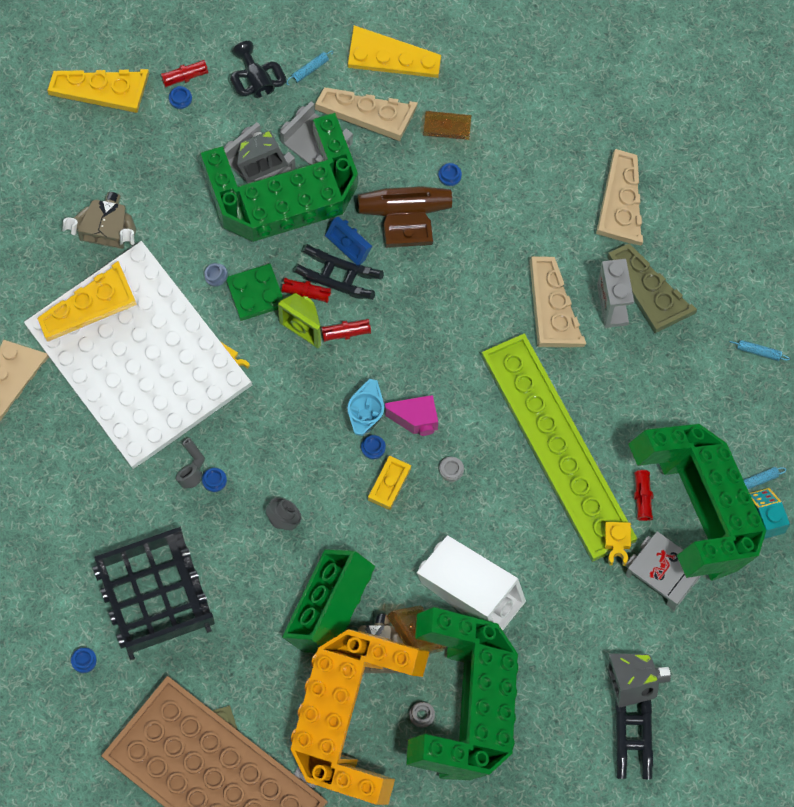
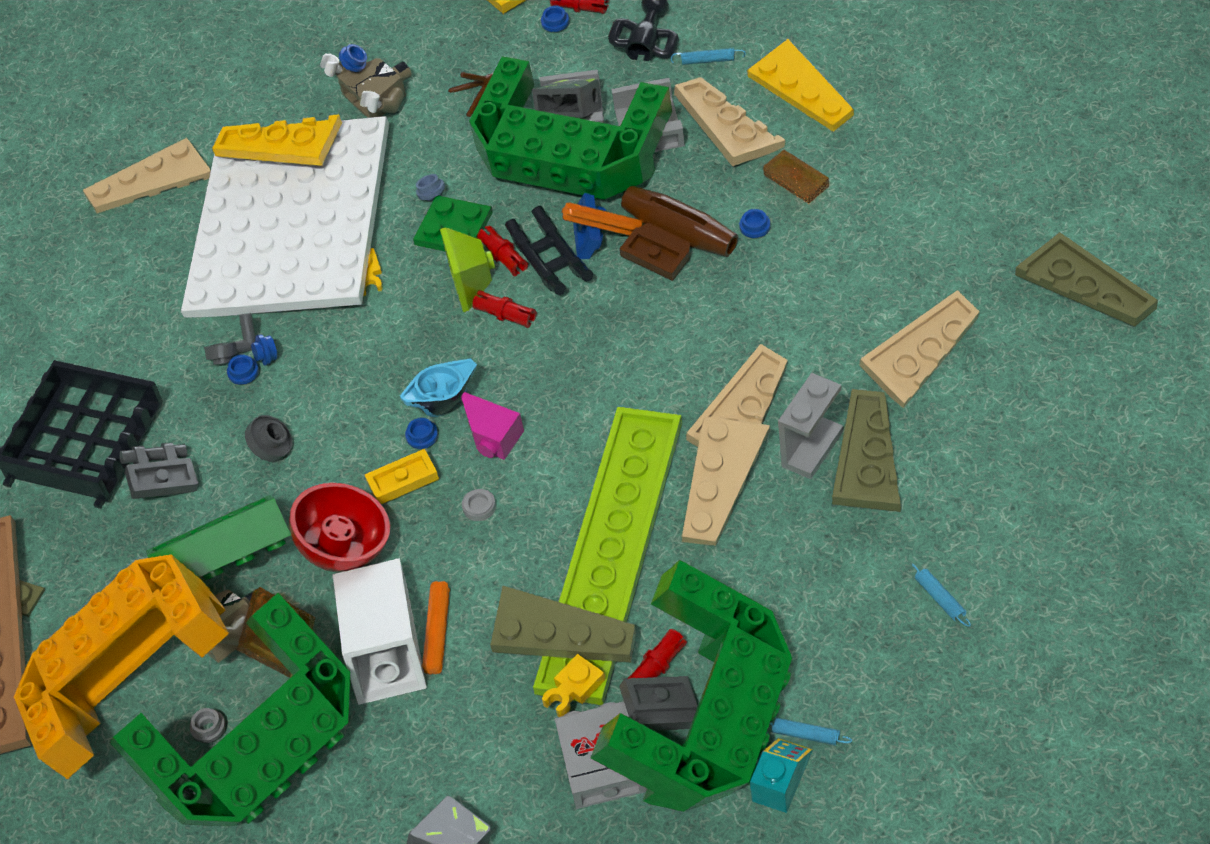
camera: 50 degrees right, 15 degrees down
(83, 211) = (353, 58): none -> blue plate
(177, 173) = (479, 81): none -> reddish brown plant
(217, 456) = (264, 349): none -> blue plate
(239, 586) = (158, 477): none -> dark grey plate
(363, 231) = (599, 219): none -> orange axle
(396, 540) = (338, 526): none -> red piece
(494, 555) = (436, 627): none -> orange axle
(574, 517) = (554, 629): none -> olive wing
(579, 353) = (721, 467): none -> tan wing
(673, 518) = (660, 702): none -> dark grey plate
(678, 96) = (1085, 279): none -> olive wing

